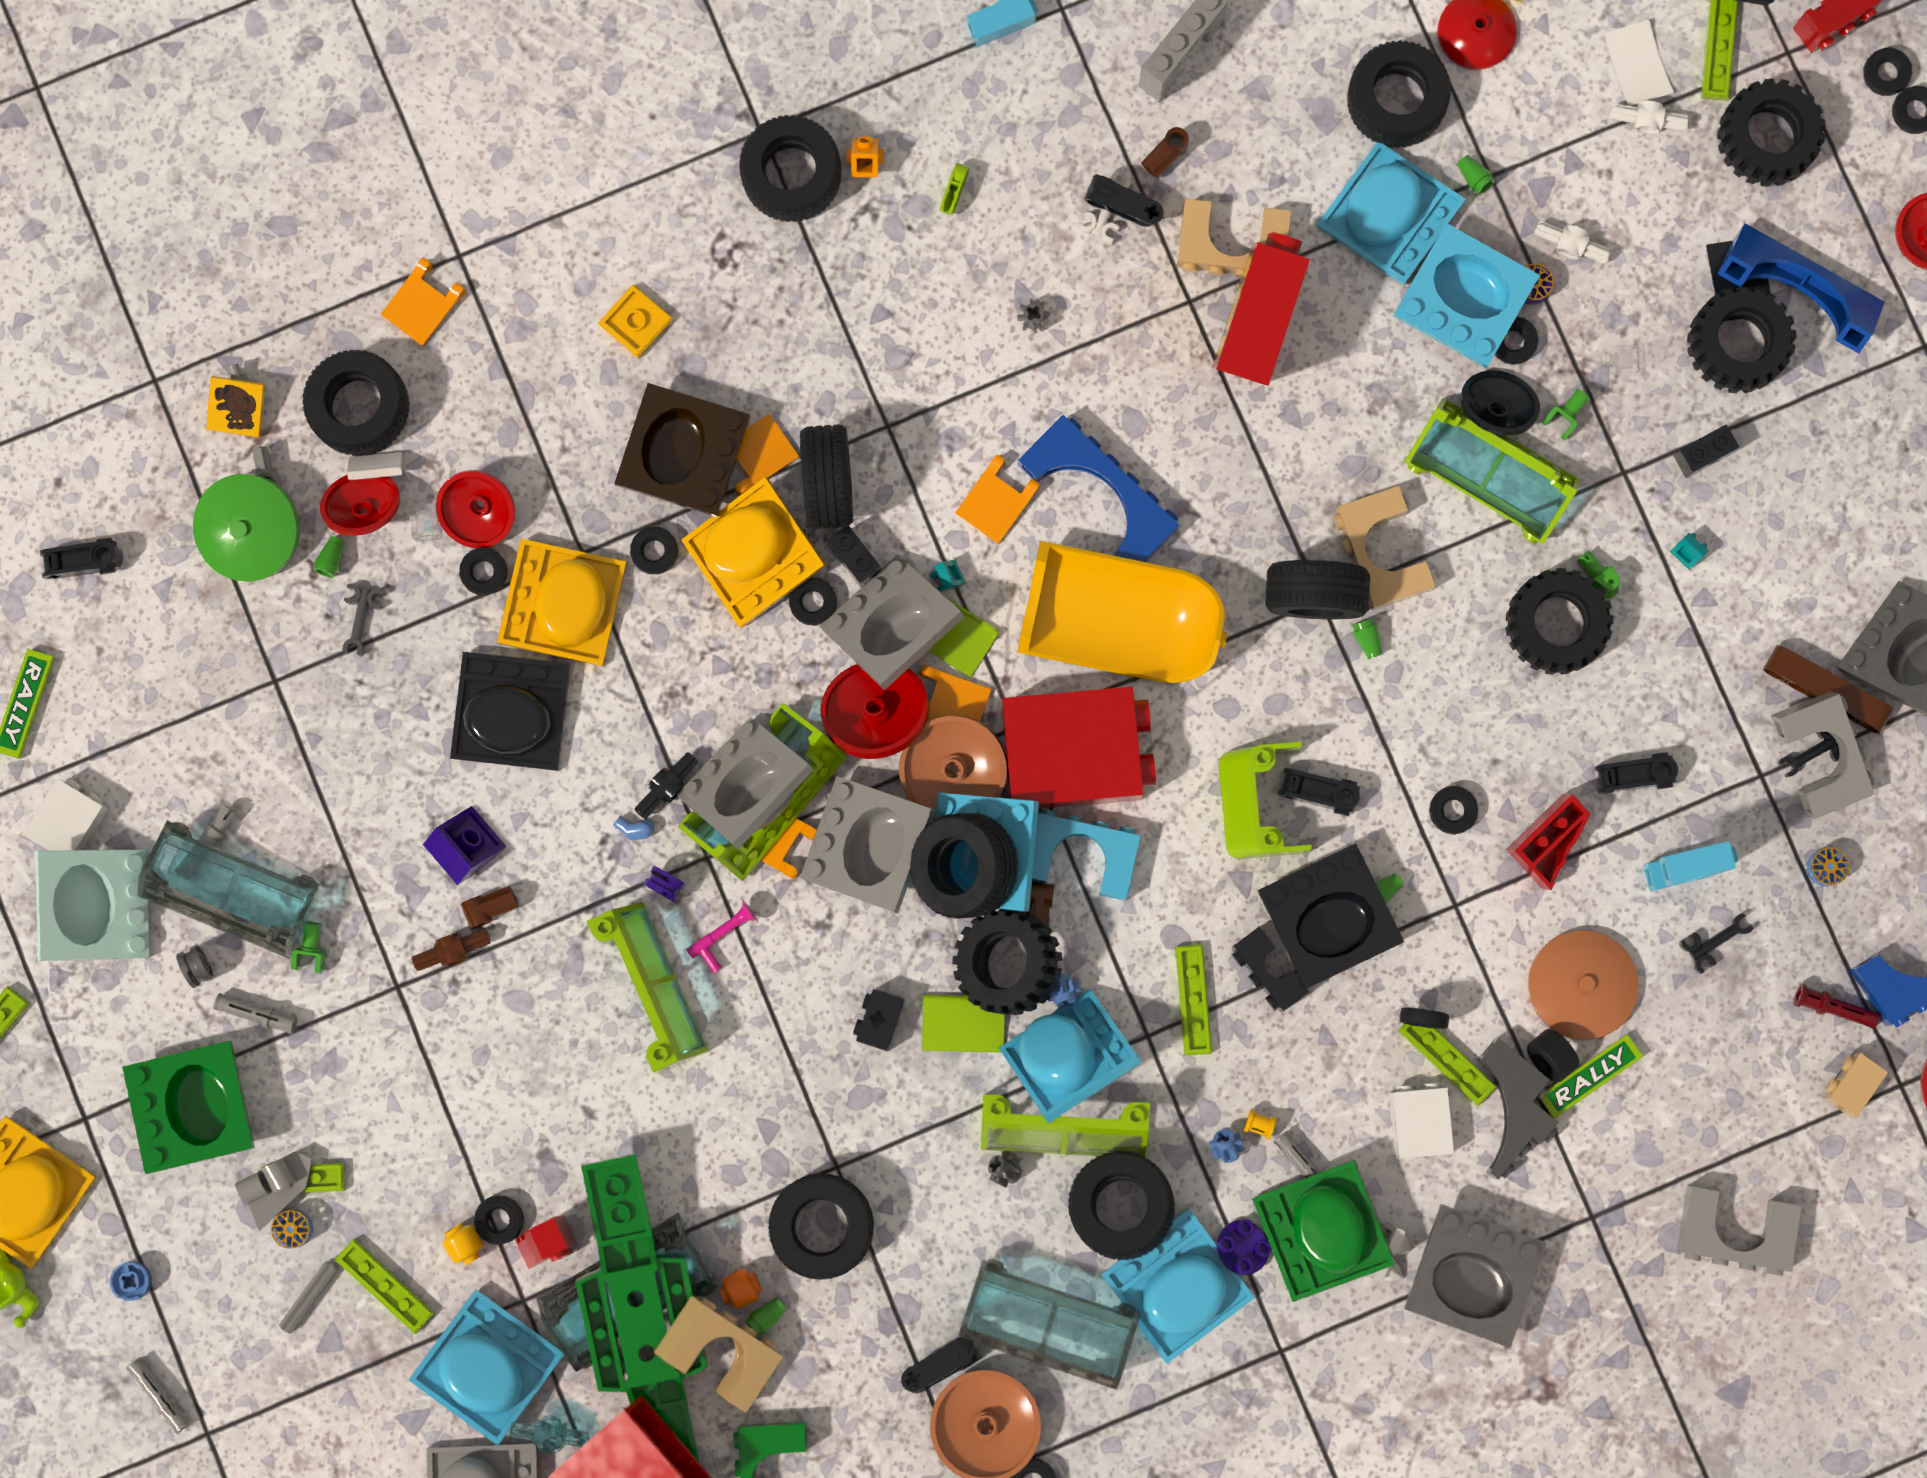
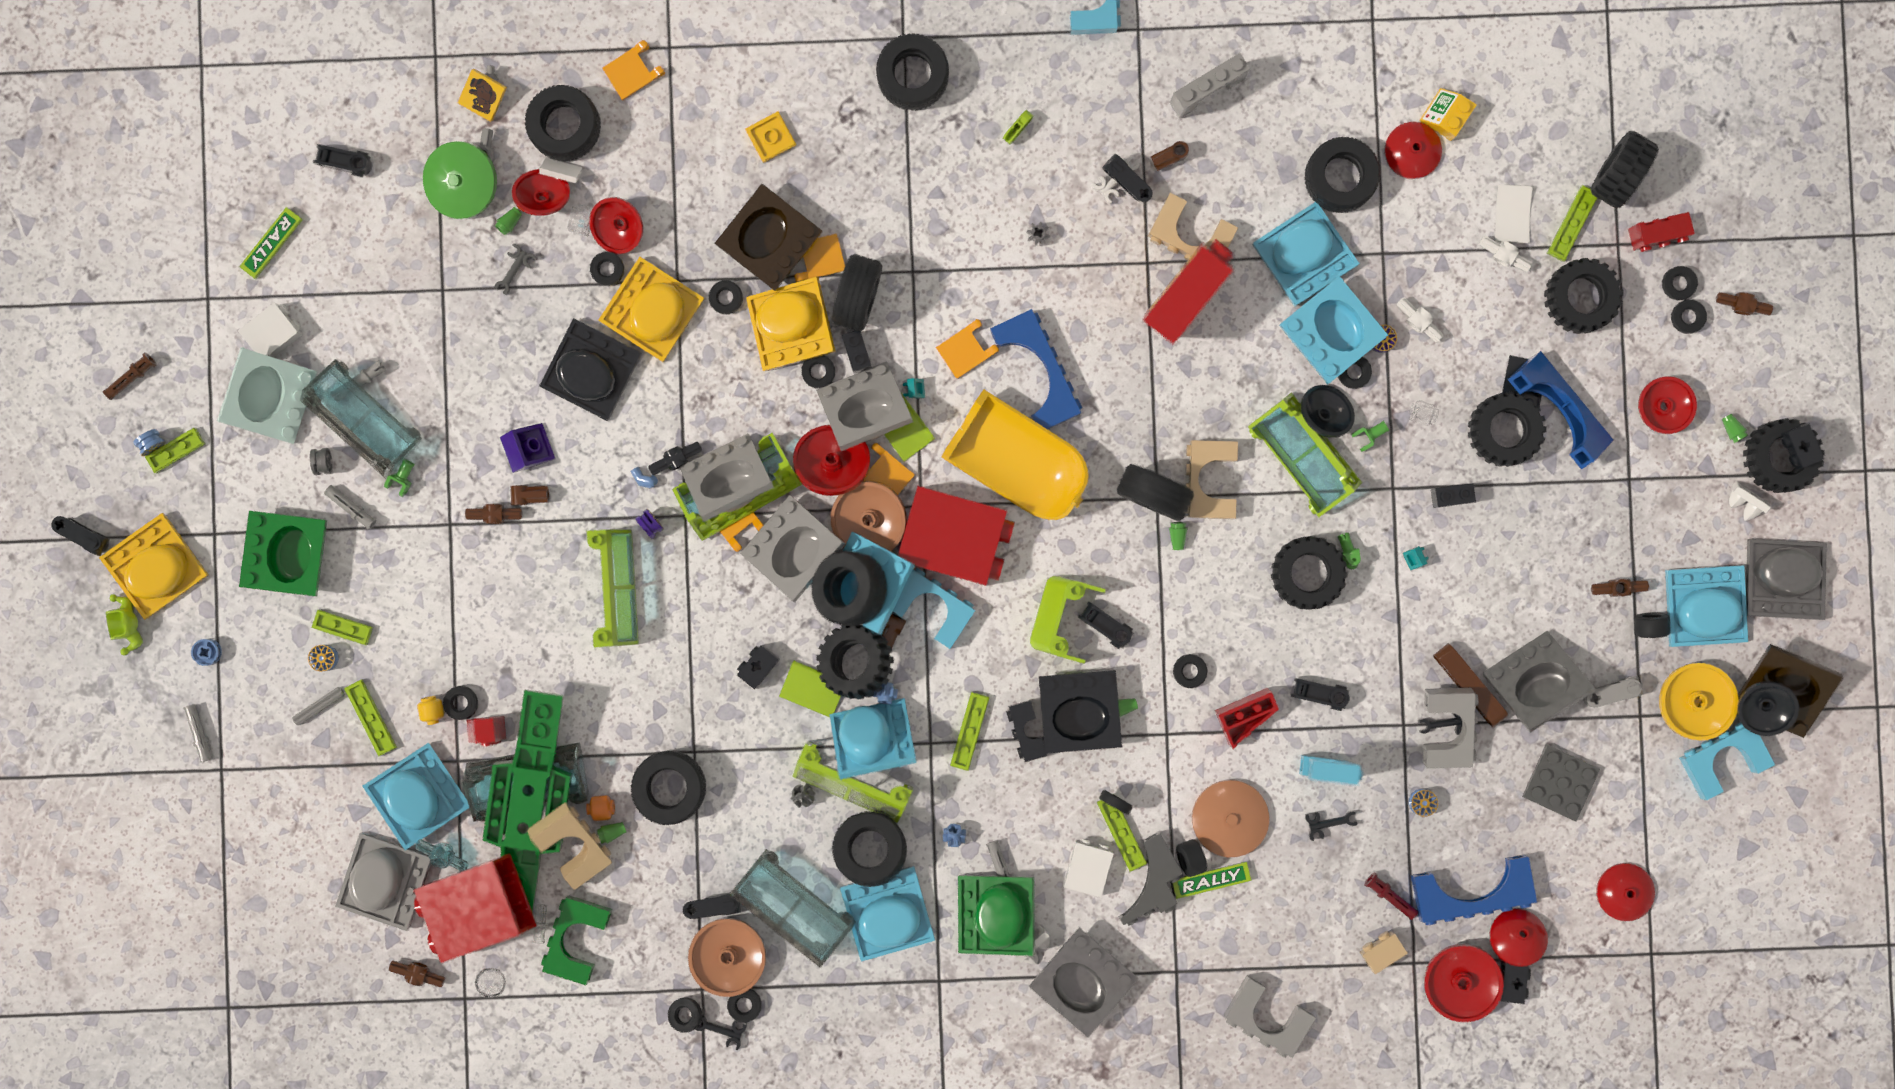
camera: 25 degrees right, 5 degrees up
(274, 1186) = (321, 626): light grey panel -> none
(702, 945) = (695, 563): dark pink piece -> none
(865, 157) = (965, 83): light orange brick -> none
(1243, 1247) = (939, 905): dark purple dish -> none
(1260, 1124) = (981, 829): yellow bush -> none
(1476, 175) = (1373, 250): bright green cone -> none

